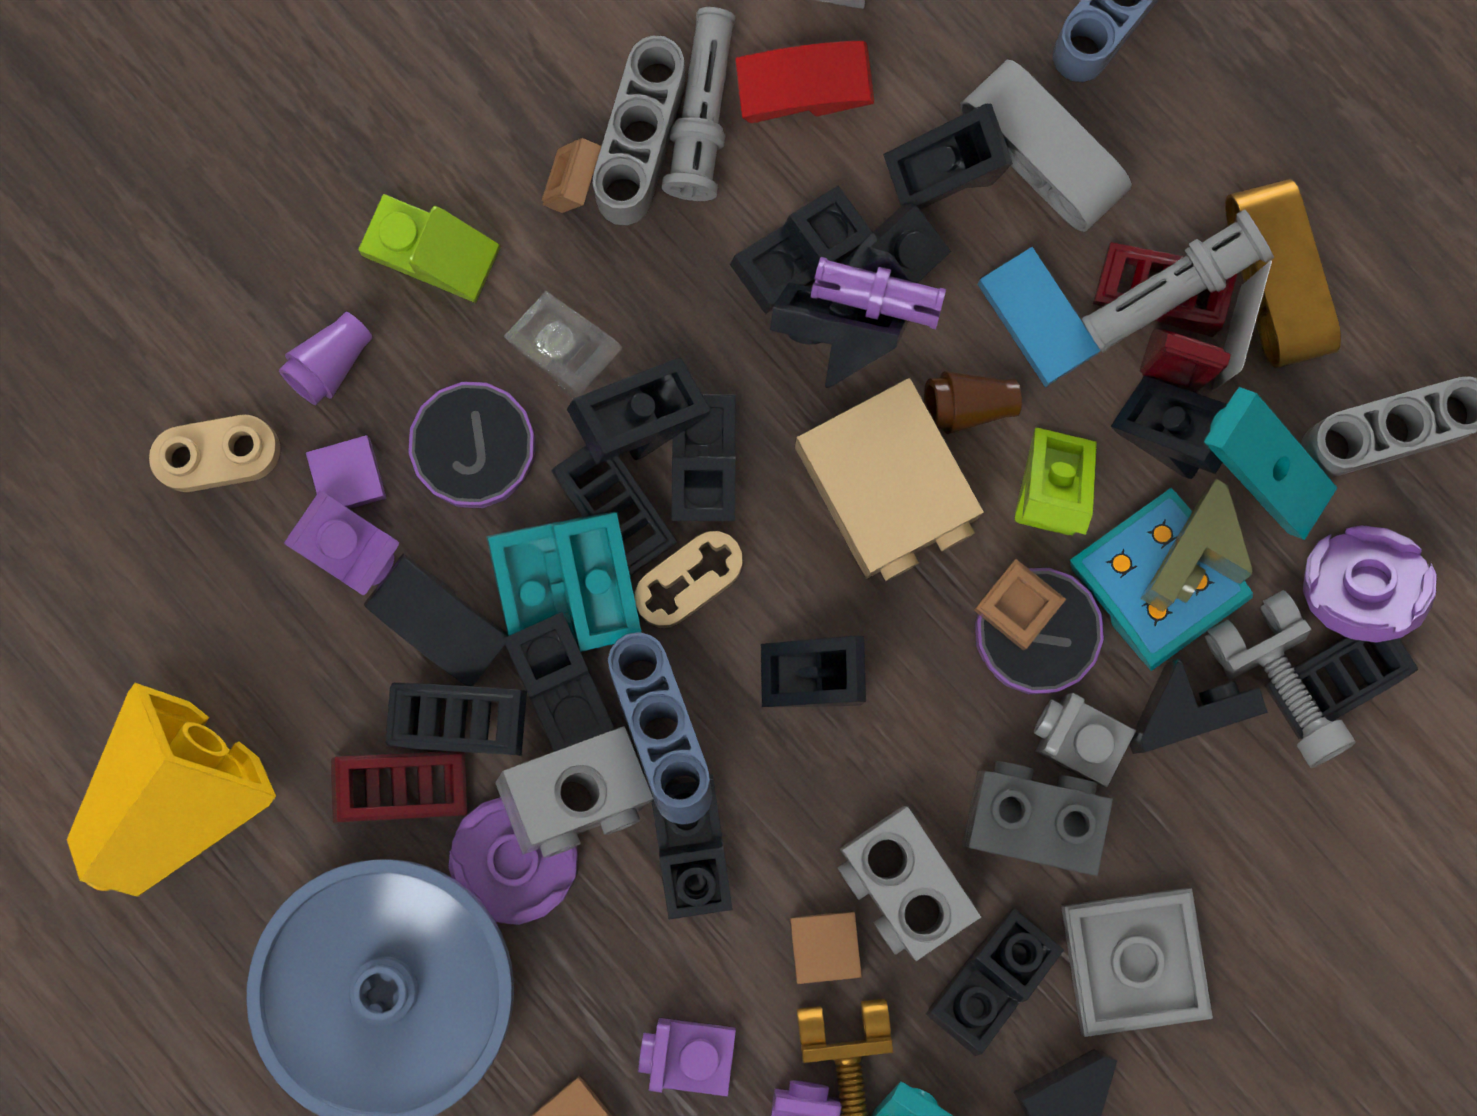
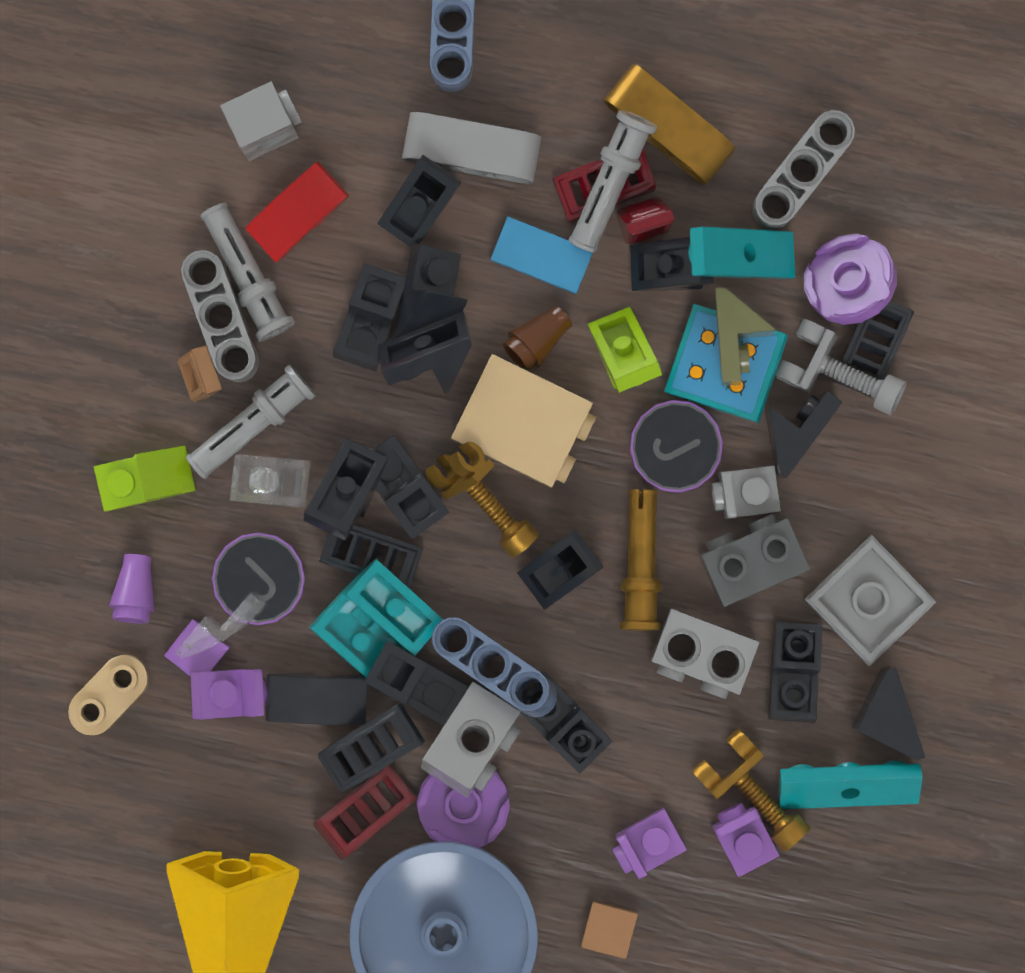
camera: 30 degrees left, 5 degrees up
(372, 463) = (211, 633): none -> clear slope
(618, 267) = (267, 408): none -> light grey pin
(678, 567) = (435, 562): tan beam -> none
(790, 599) = (467, 478): none -> pearl gold bar
(825, 947) = (682, 723): medium nougat tile -> none
(878, 293) = (437, 318): medium lavender pin -> none
(891, 756) = (641, 585): none -> pearl gold pin
(1019, 604) = (653, 440): medium nougat tile -> none
(1243, 324) = (667, 179): white sticker -> none

